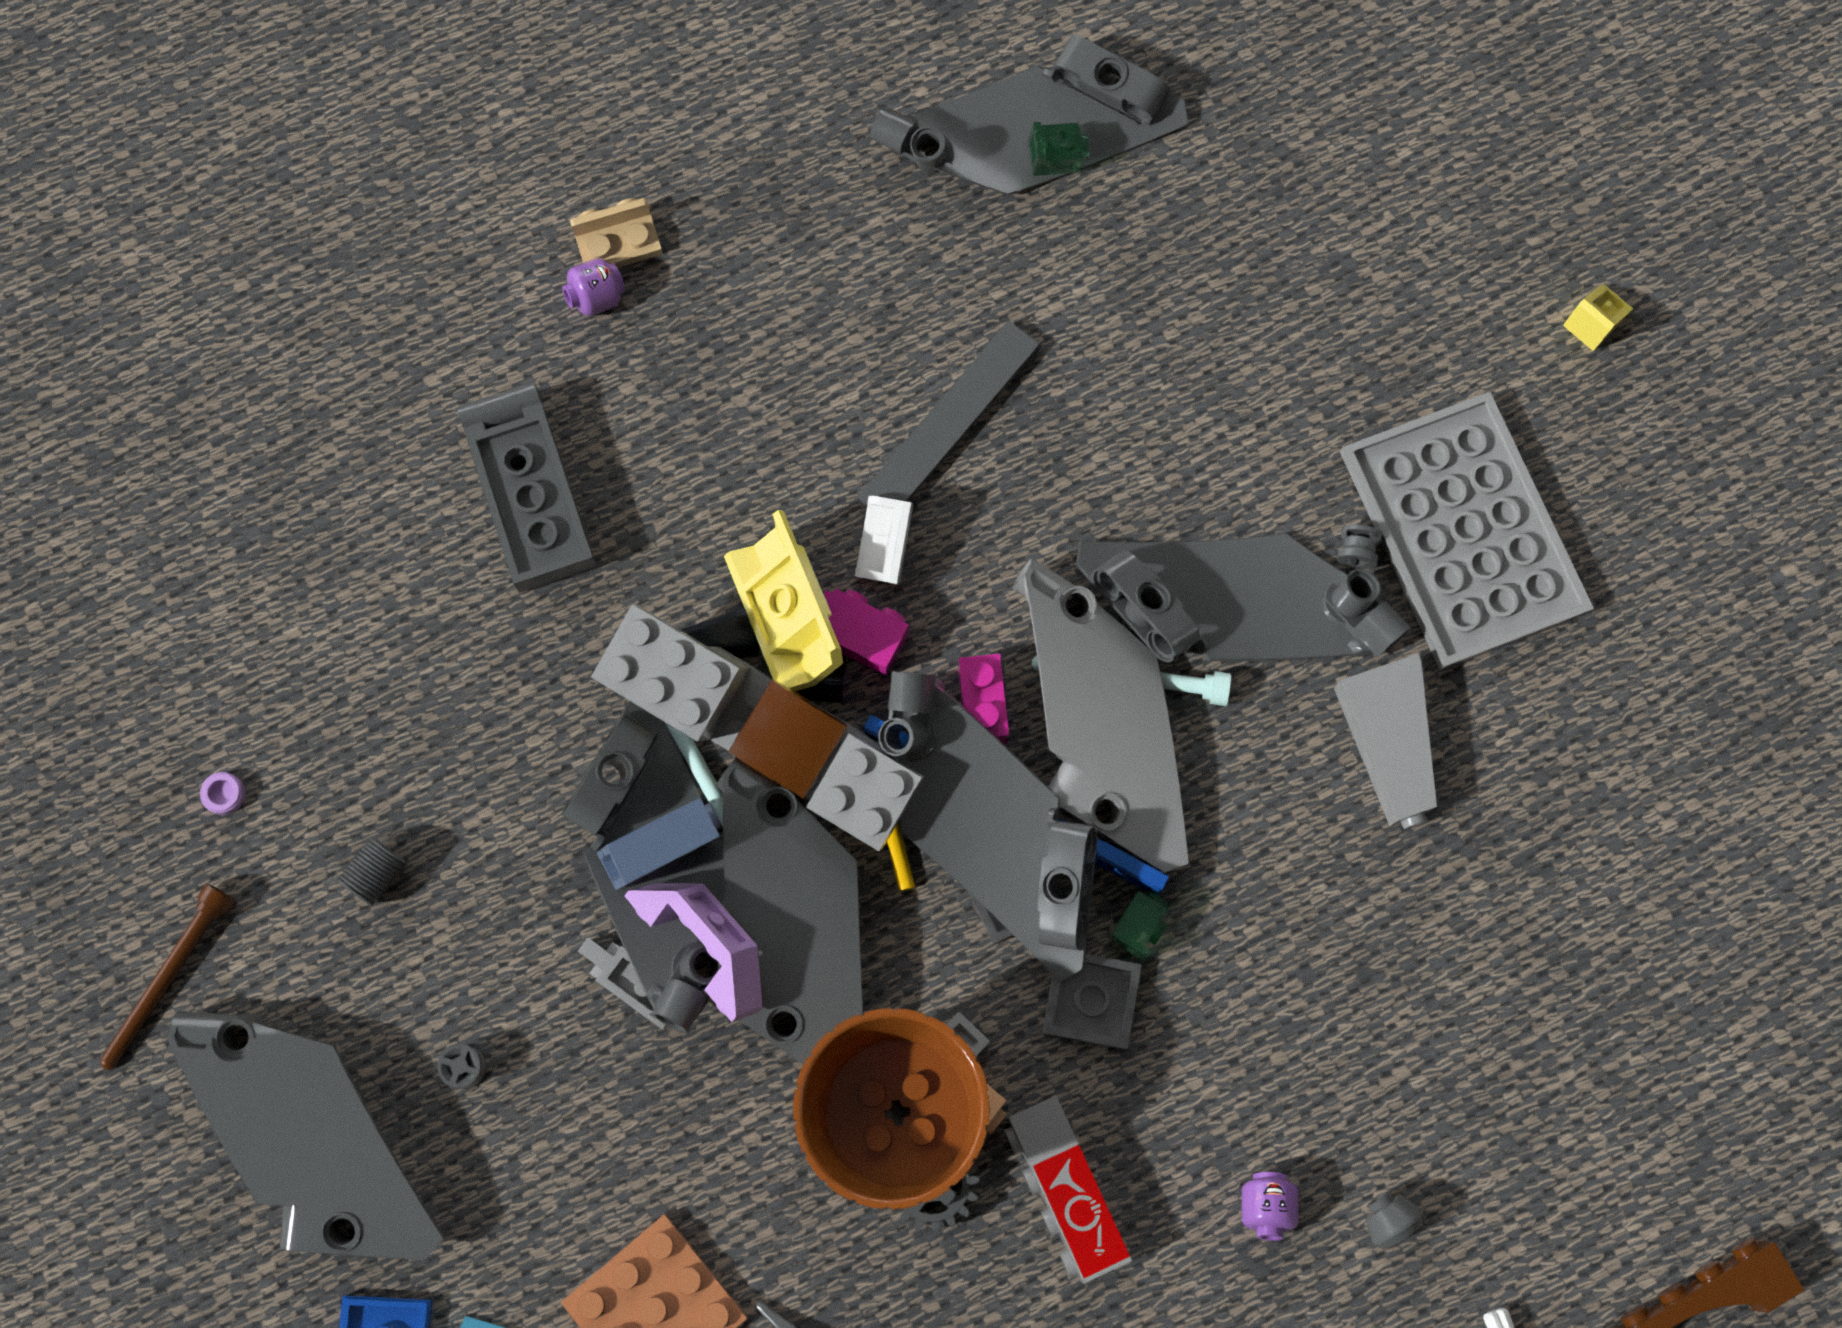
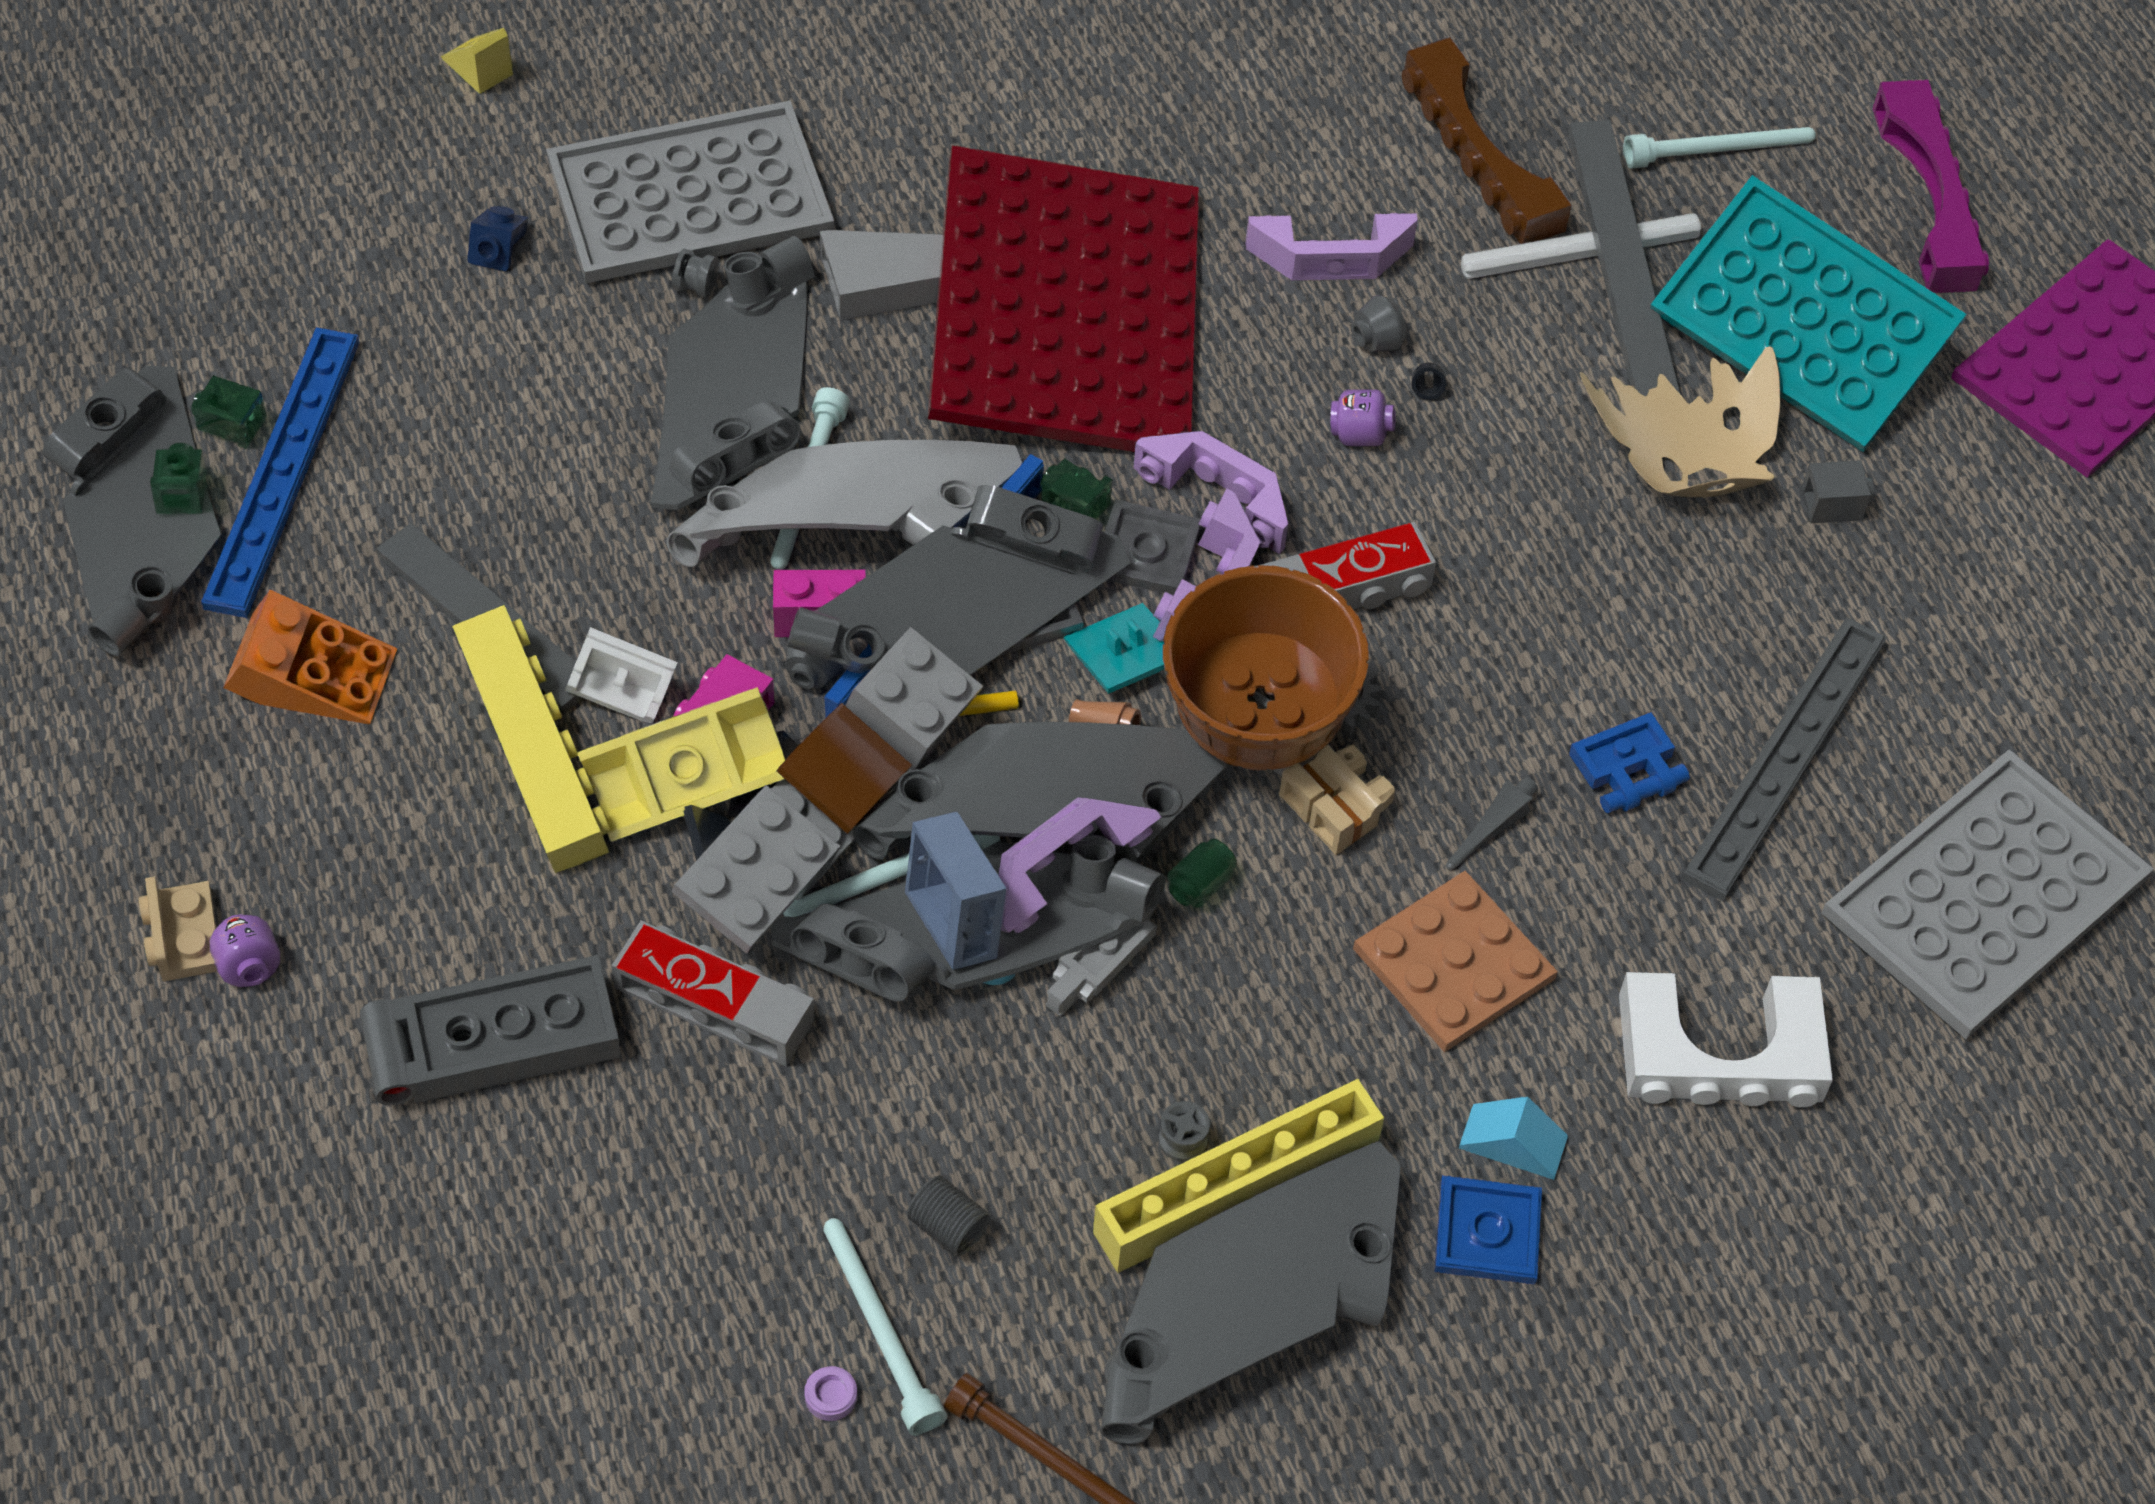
camera: 90 degrees left, 20 degrees down
(204, 865) = (920, 1408): none -> light aqua piece
(410, 1116) = (1233, 1172): none -> light yellow brick
(576, 647) = (714, 992): none -> light grey brick
(723, 1068) = (1201, 873): none -> clear green brick
(802, 1206) = (1335, 797): none -> tan hips
(813, 473) = (530, 738): none -> light yellow brick
(879, 289) = (309, 662): none -> orange slope
(884, 973) = (1104, 712): none -> nougat cone
(971, 985) = (1120, 648): none -> teal piece
(1091, 231) = (280, 473): none -> blue tile
(1110, 1074) = (1227, 535): none -> lavender slope
(1136, 188) = (229, 410): none -> clear green brick
(1193, 1013) = (1168, 457): none -> lavender slope
(1341, 1274) = (1418, 381): none -> black hinge
(1376, 900) = (1064, 301): none -> dark red plate
(1380, 363) = (493, 237): none -> dark blue bracket
(1516, 1228) = (1273, 242): none -> lavender slope

